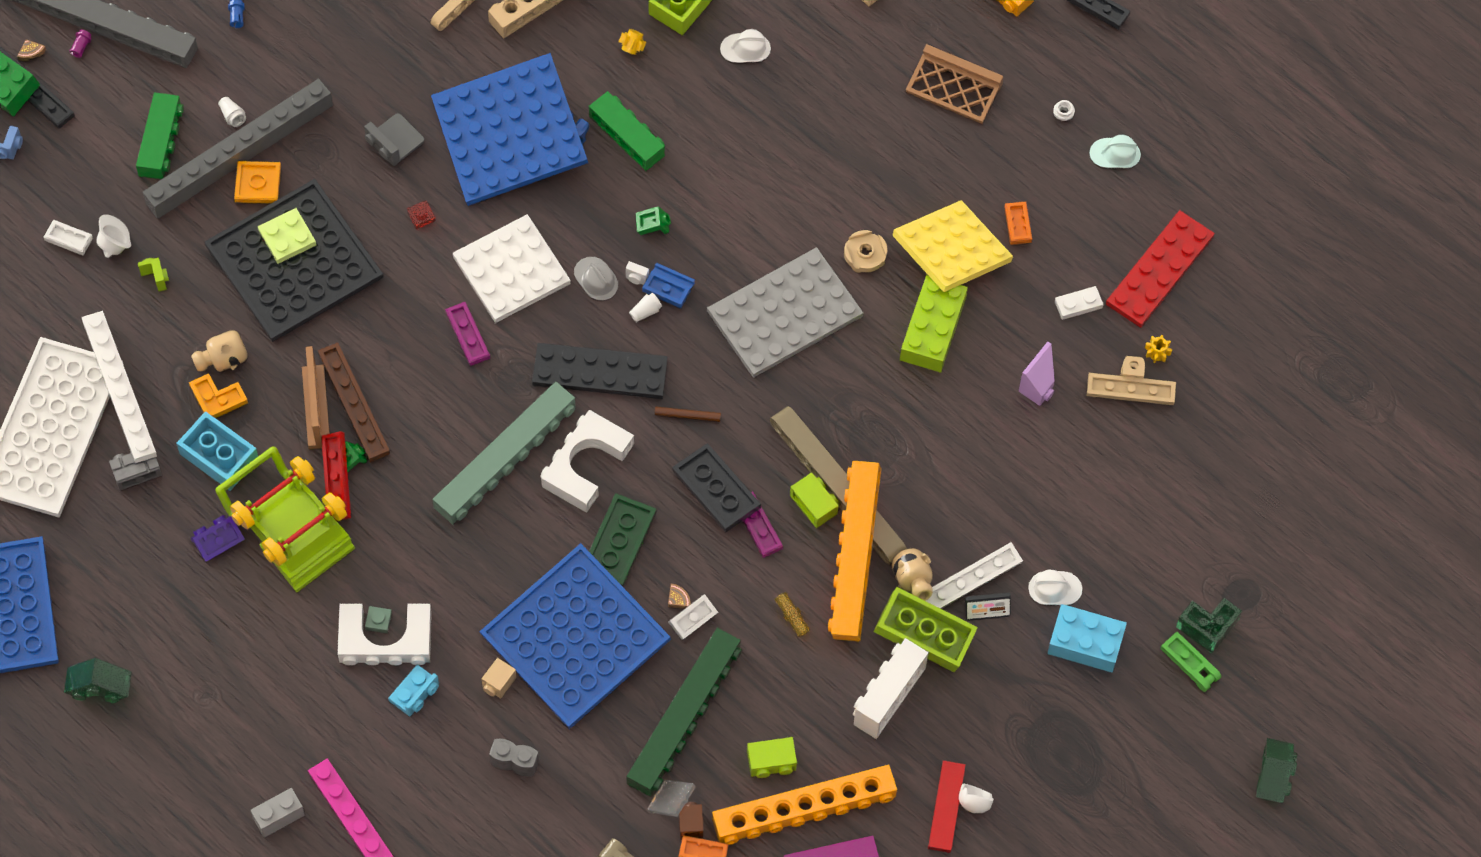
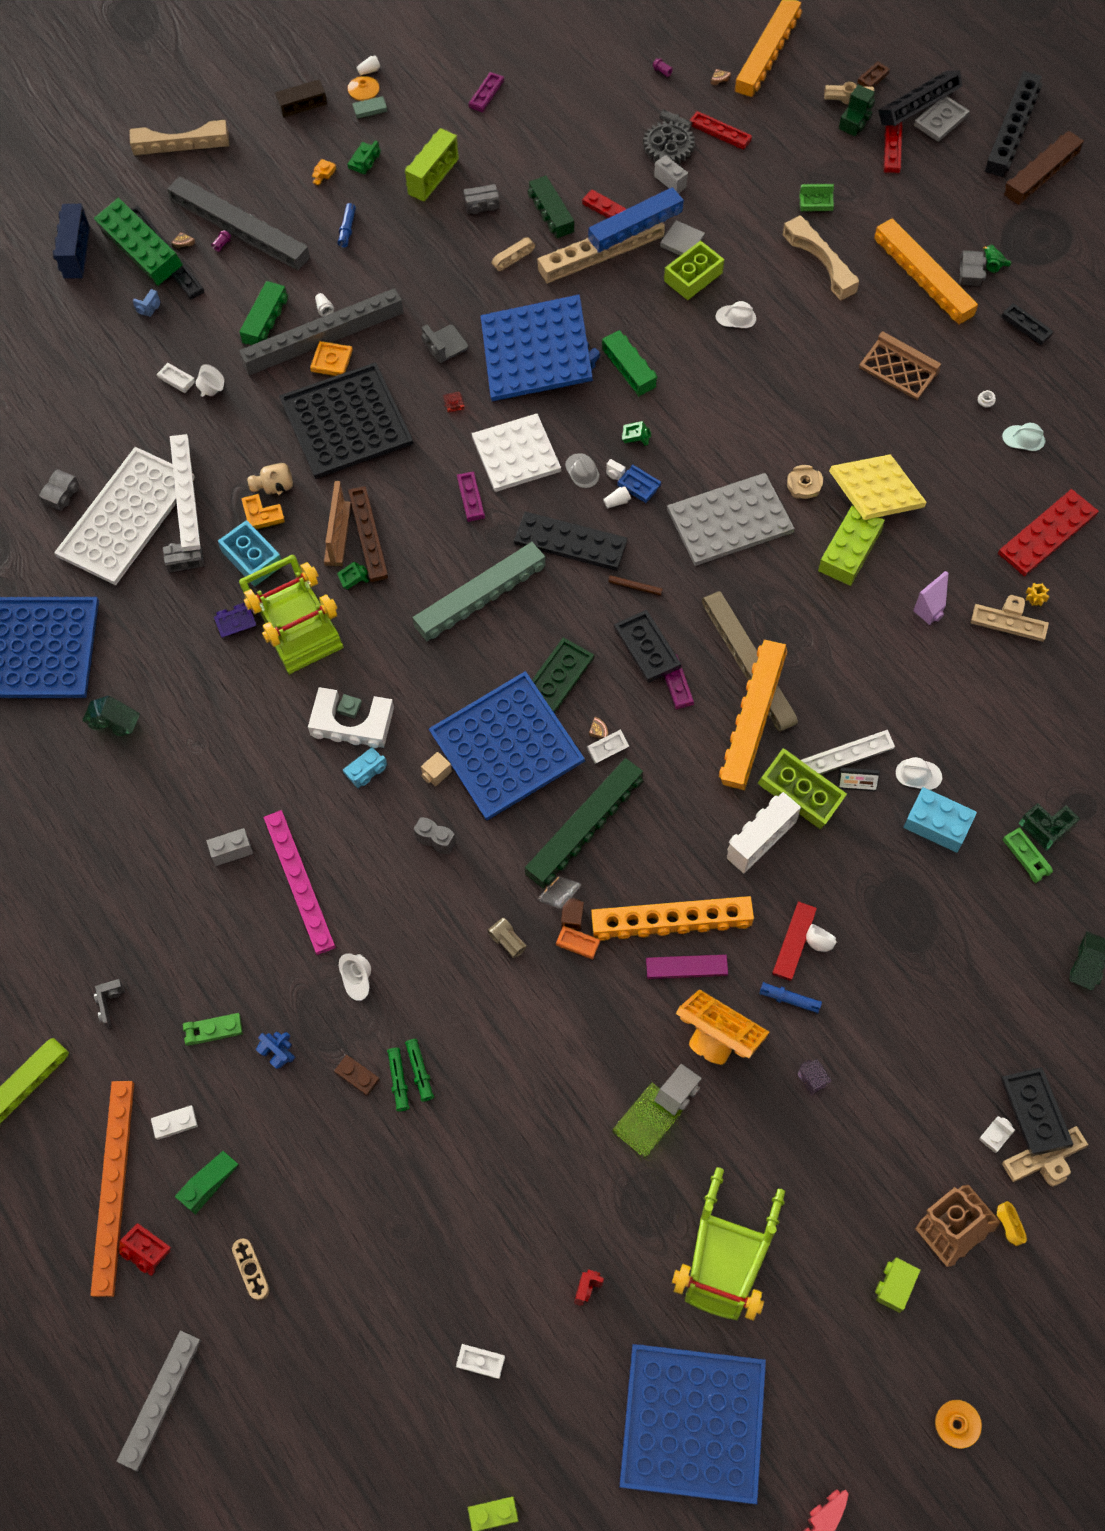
camera: 15 degrees right, 0 degrees up
(152, 266) = (234, 408): lime bracket -> none
(287, 235) = (343, 400): yellowish green plate -> none
(336, 468) = (340, 584): red tile -> none
(591, 432) = (552, 587): white arch -> none
(632, 41) = (646, 298): yellow gear -> none
(772, 757) = (651, 873): lime brick -> none
(792, 614) = (691, 758): clear yellow pin -> none
(814, 499) = (727, 669): lime brick -> none
(913, 572) = (800, 740): tan piece -> none
(1018, 223) = (934, 479): orange plate -> none
(1078, 302) = (975, 548): white plate -> none

